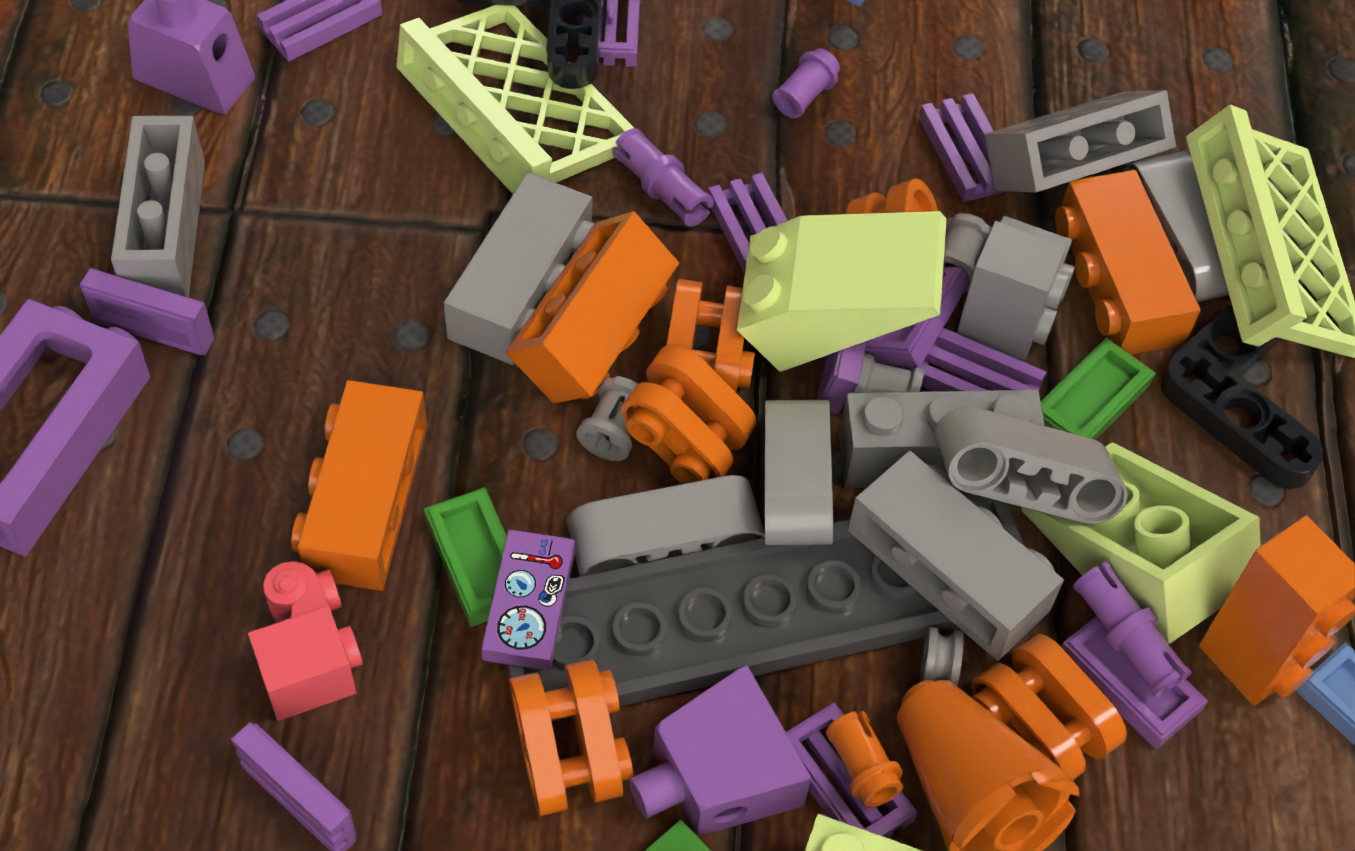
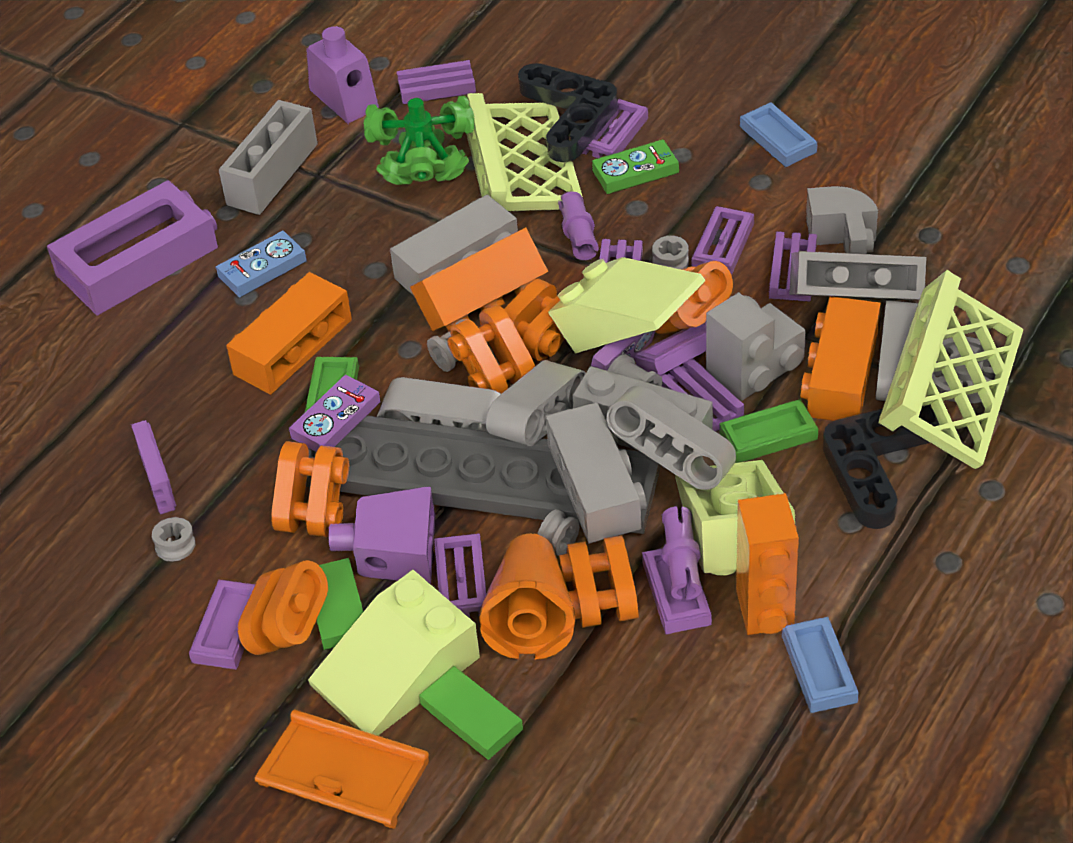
camera: 35 degrees right, 10 degrees down
(147, 311) = (232, 209): medium lavender tile -> none
(240, 384) = (261, 263): none -> medium blue tile
(304, 653) = (205, 404): coral brick -> none
(365, 103) = (420, 137): none -> bright green plant
(675, 64) = (635, 166): none -> bright green tile
(814, 193) = (671, 252): none -> light grey bush
(815, 72) = (706, 199): medium lavender pin -> none
(862, 171) = (734, 216): none -> medium lavender tile
(872, 773) = (467, 569): orange pin -> none
(996, 59) = (842, 217): none -> light grey brick

